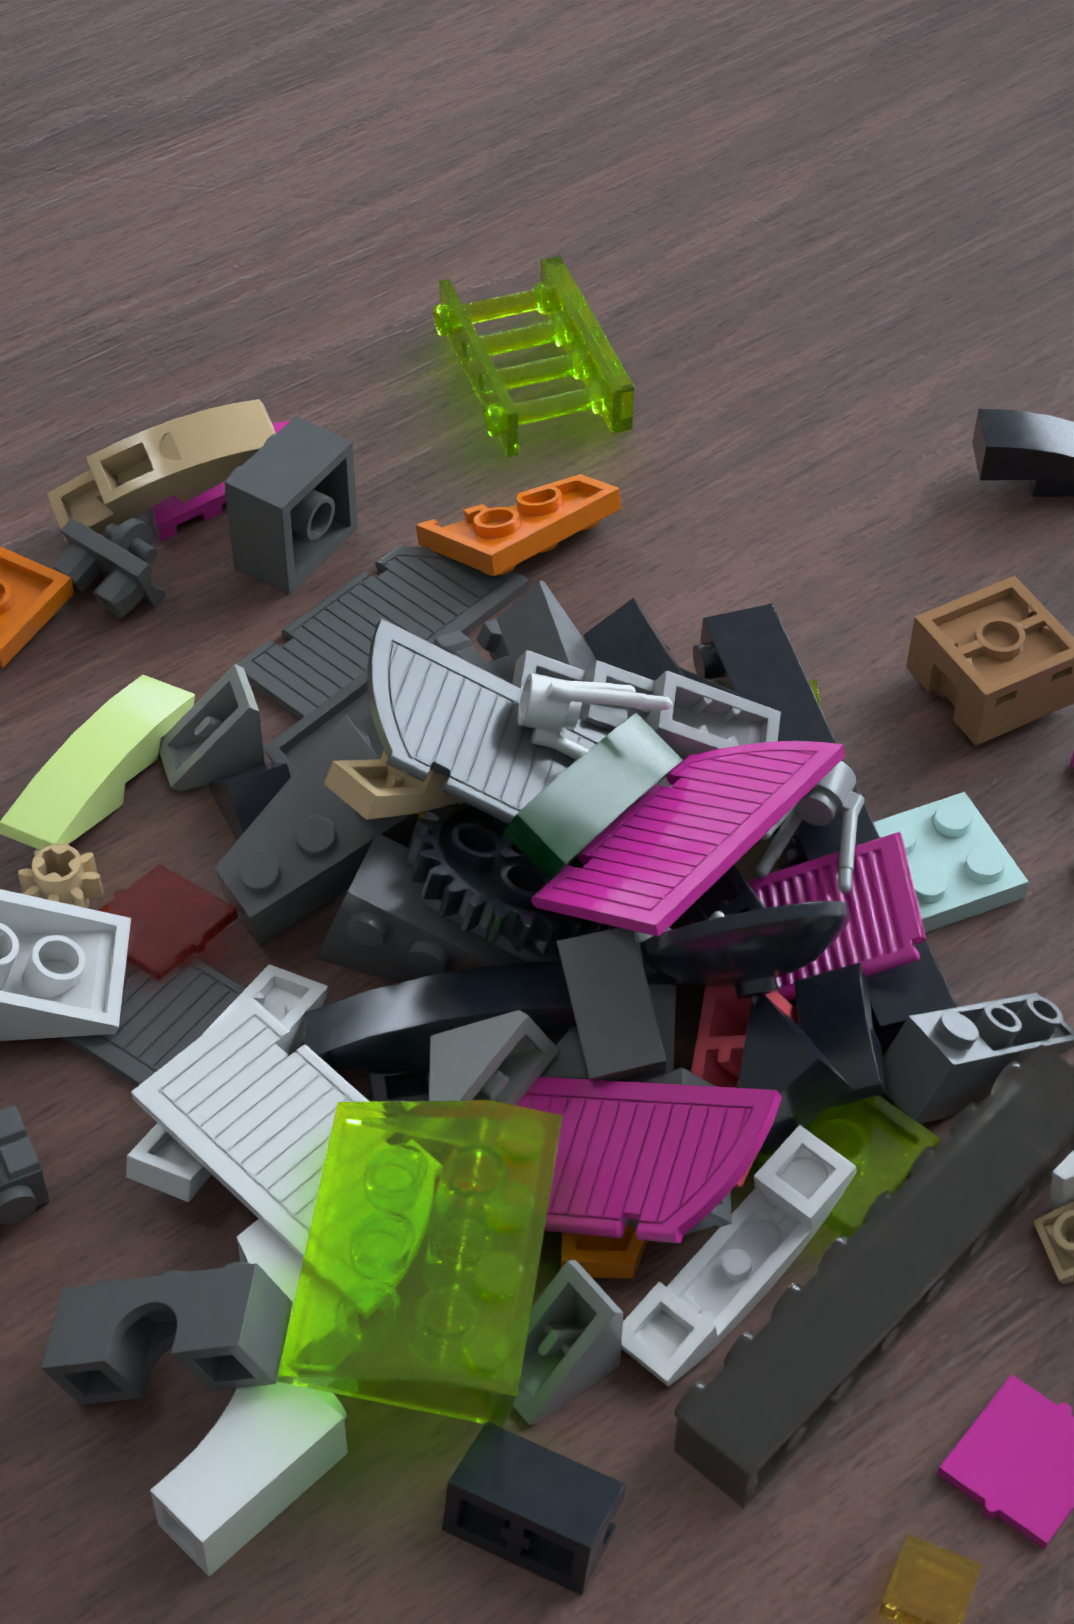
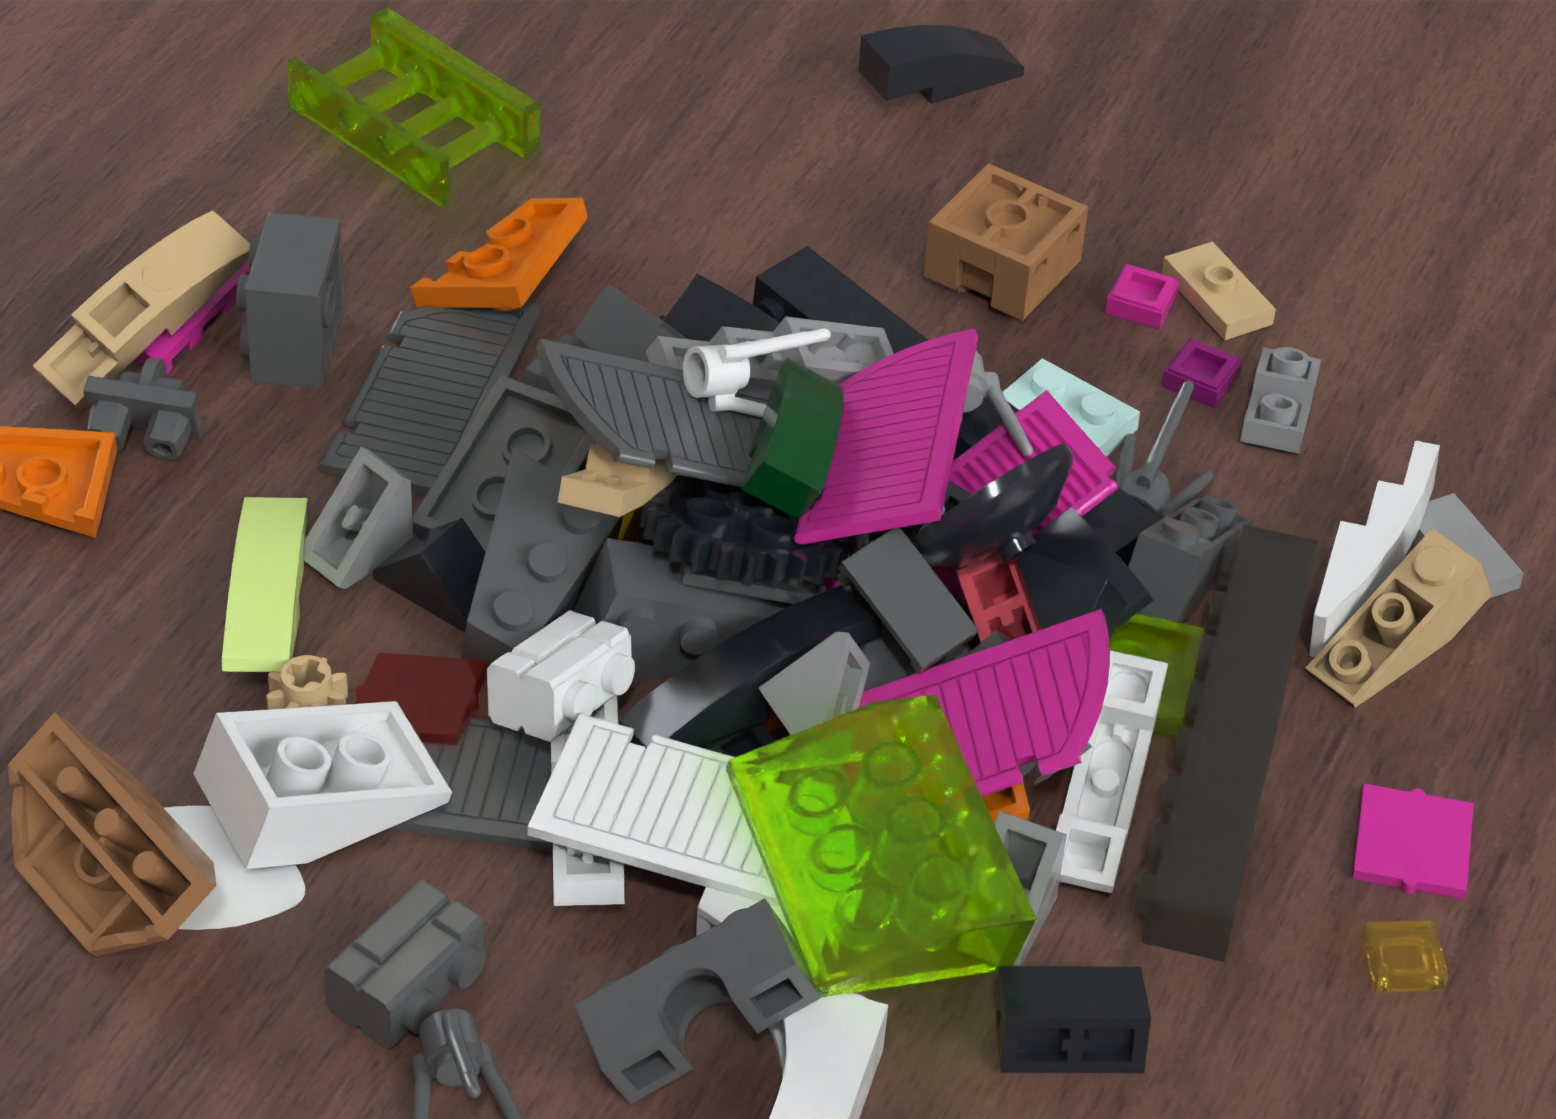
camera: 30 degrees left, 5 degrees down
(270, 950) = (559, 674): none -> white brick
(977, 967) = (1148, 483): none -> dark grey plant

